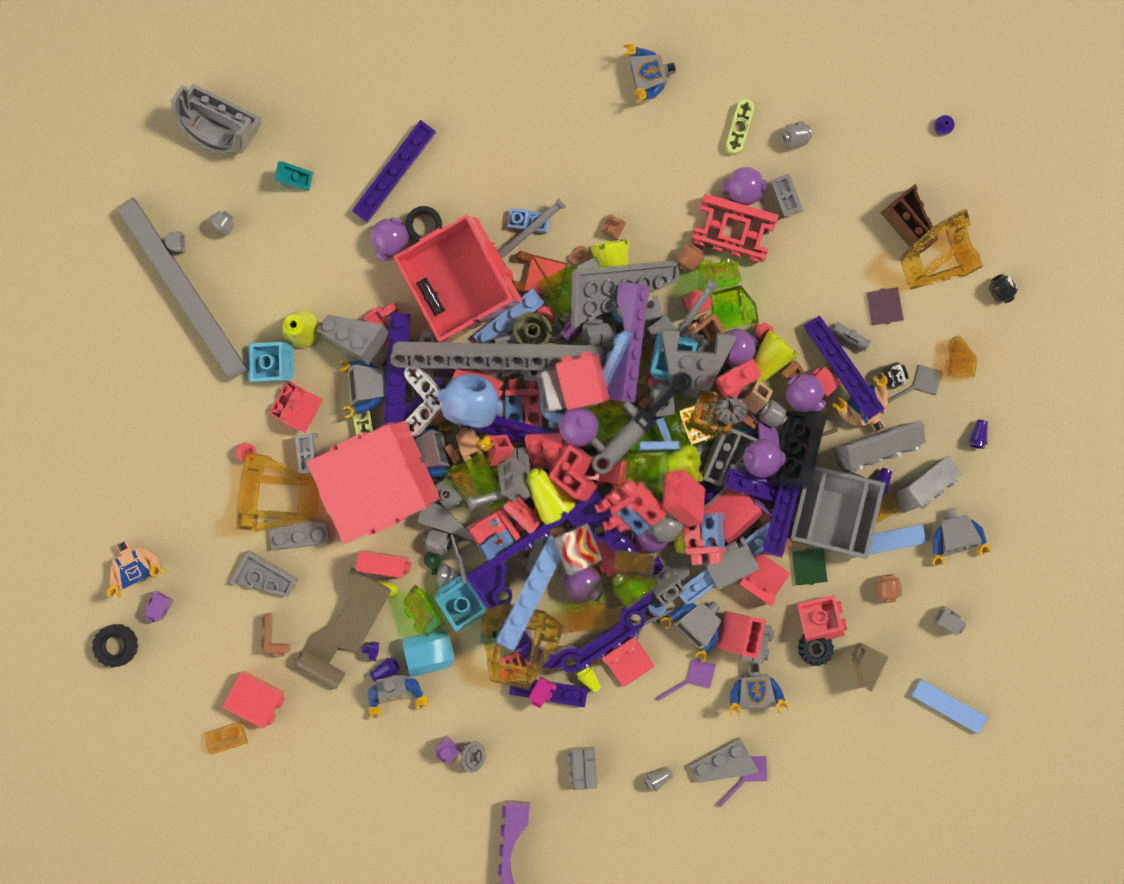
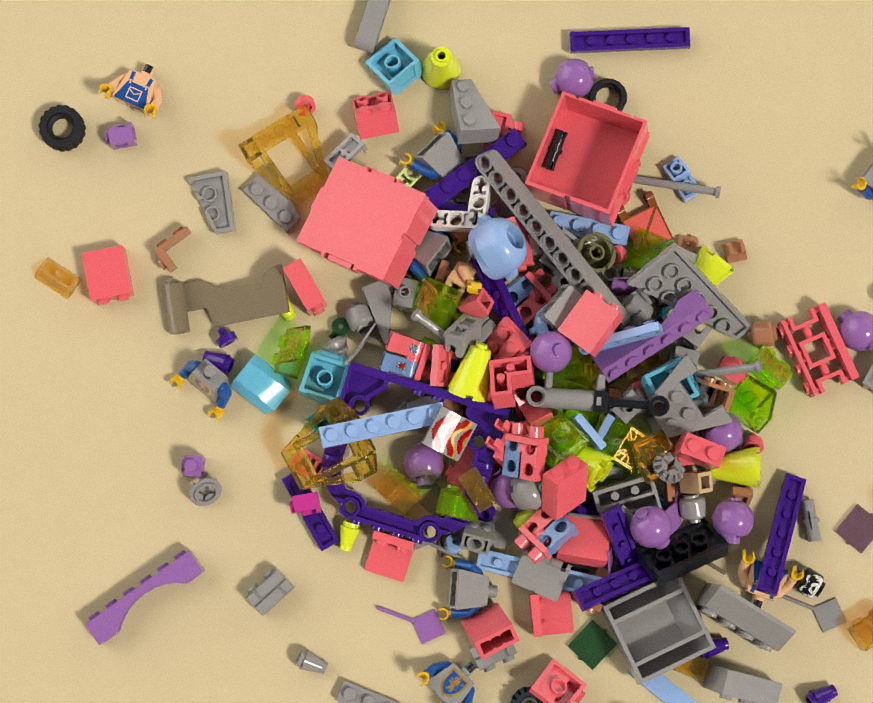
camera: 45 degrees right, 5 degrees down
(827, 379) = (759, 530): coral brick -> none

